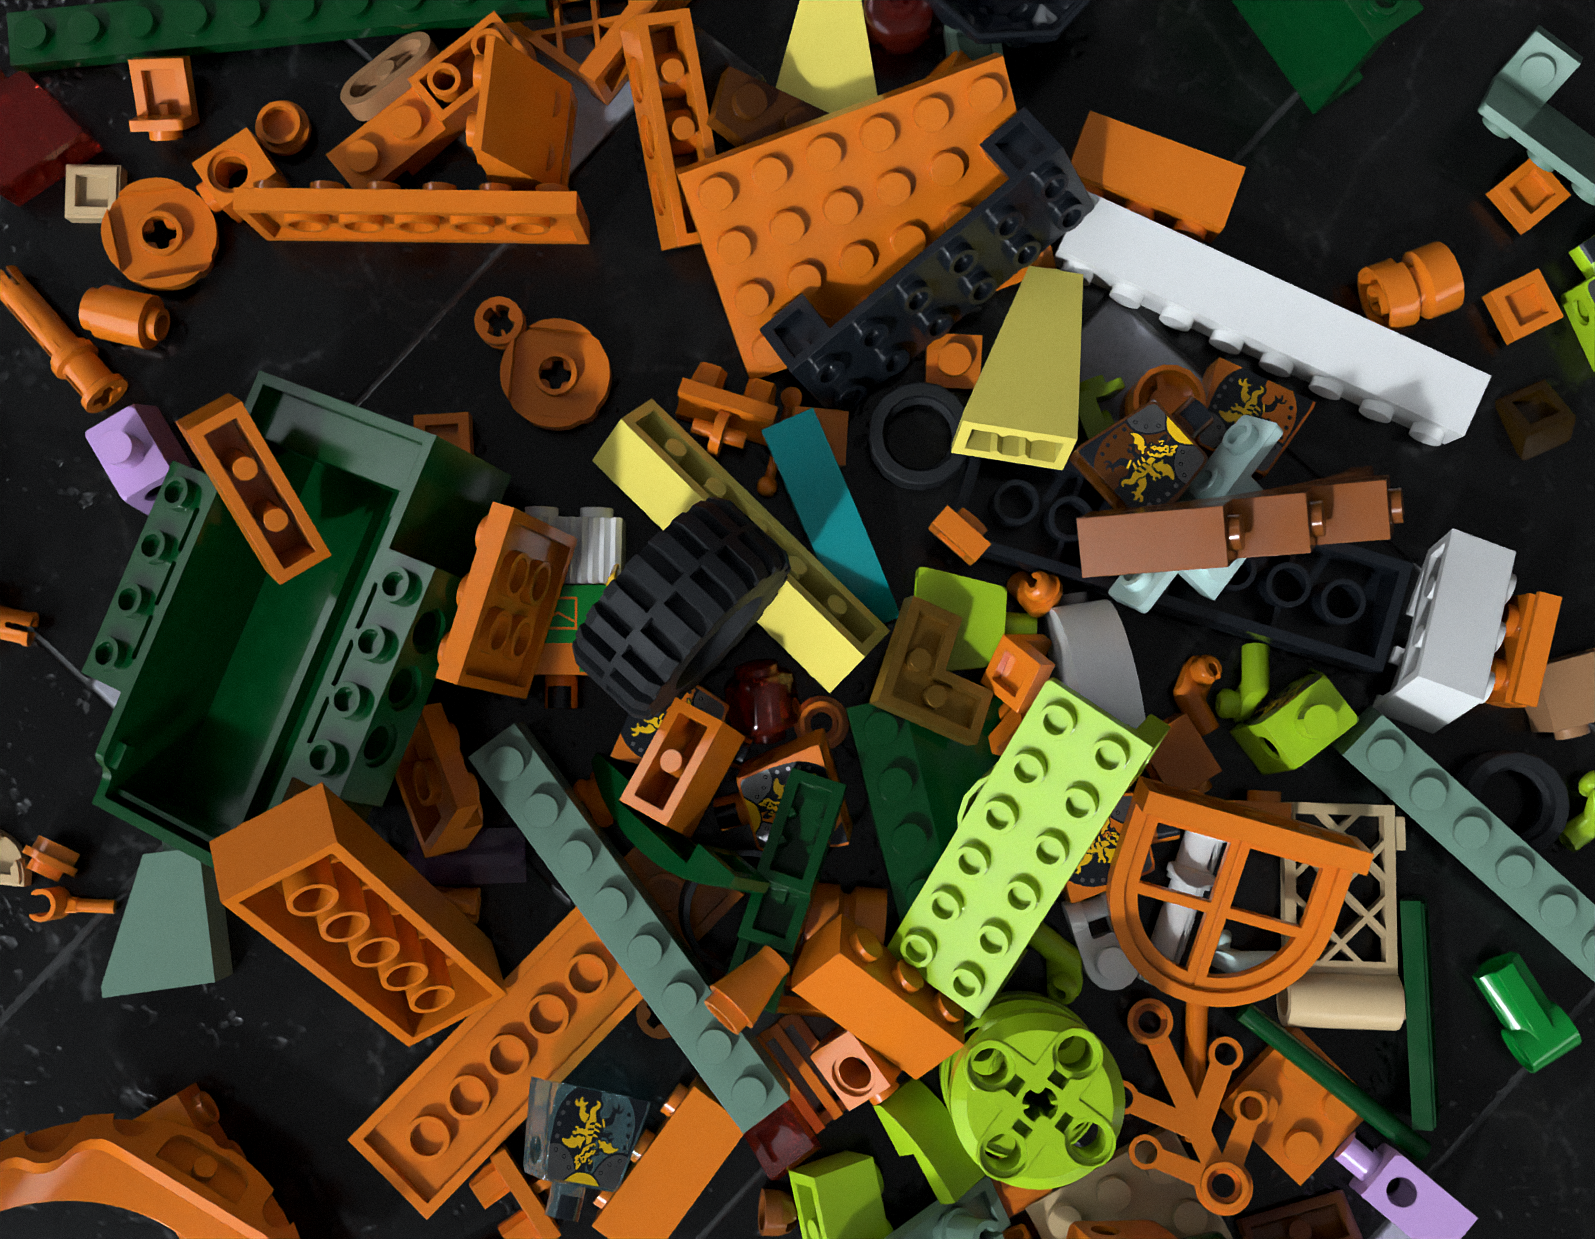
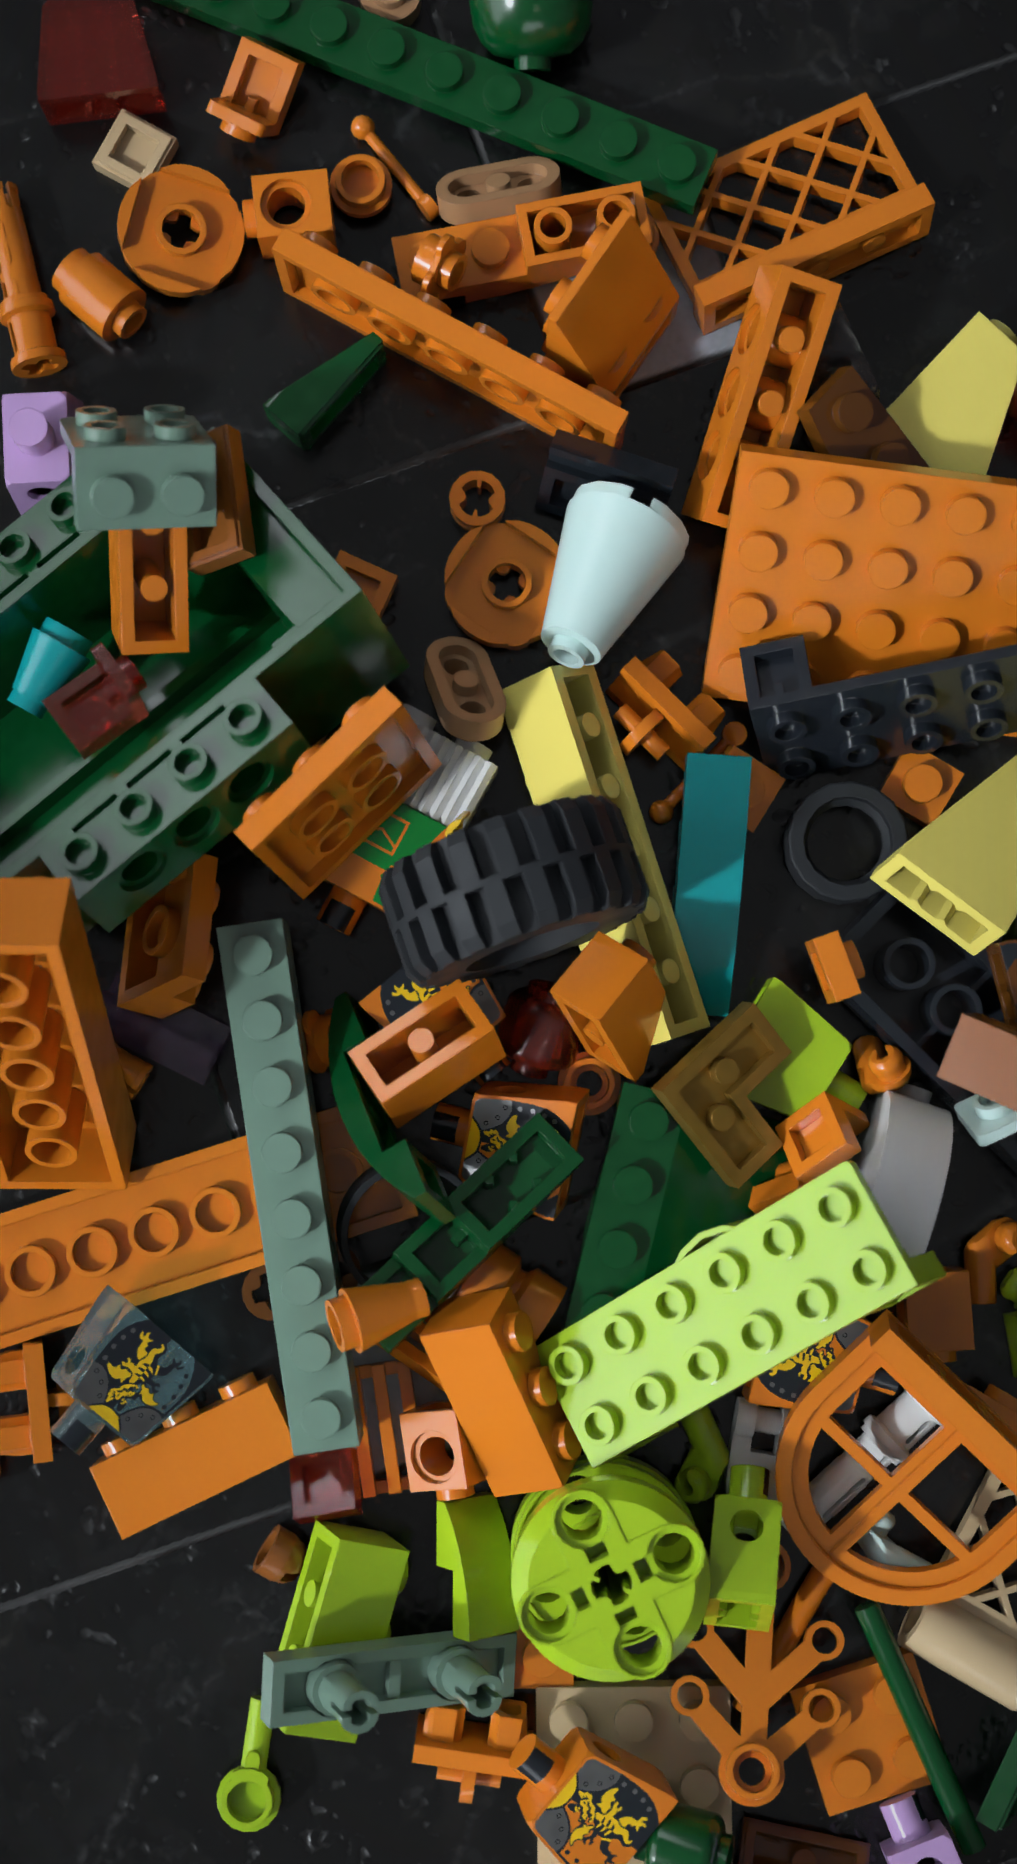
camera: 25 degrees right, 0 degrees up
(213, 433) = (140, 469): none -> sand green bracket
(230, 624) = (49, 662): none -> teal cone
(263, 83) = (363, 129): none -> orange hinge
(283, 631) = (99, 702): none -> clear red bracket
(289, 427) = (233, 536): none -> dark orange plate
(337, 304) = (318, 398): none -> dark green slope
(372, 154) = (439, 264): none -> orange plate
(565, 471) = (464, 689): none -> medium nougat plate
(592, 260) = (582, 461): none -> black plate
(625, 321) = (607, 569): none -> light aqua cone
(804, 652) = (613, 1002): none -> orange slope
(1133, 1038) = (744, 1571): none -> lime torso

